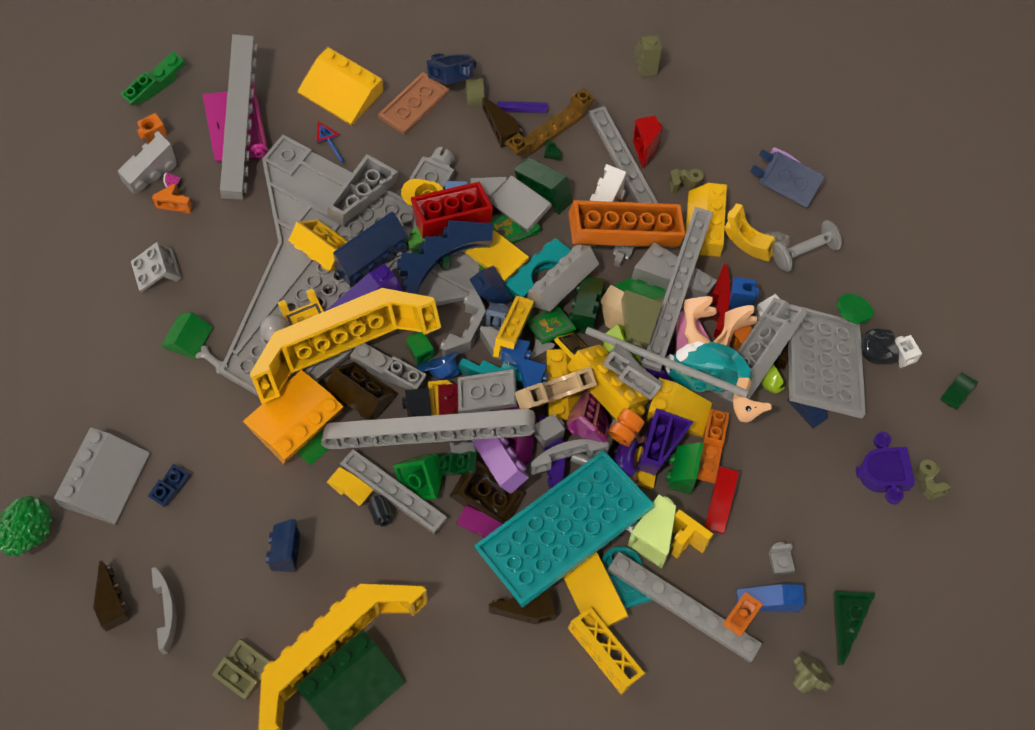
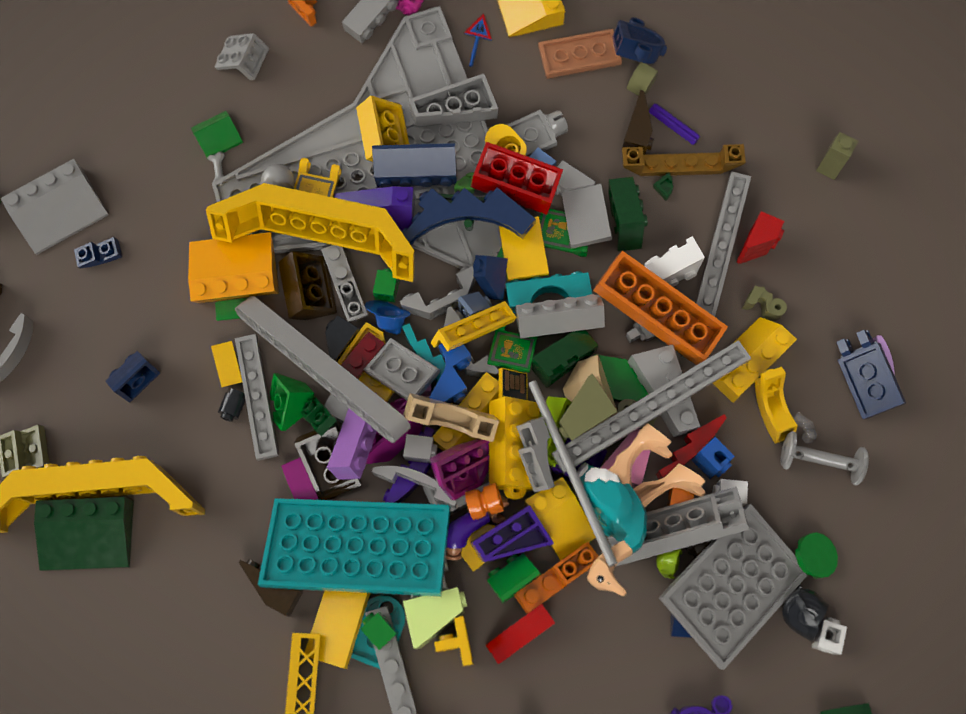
camera: 45 degrees right, 10 degrees up
(631, 566) = (378, 629): none -> green brick

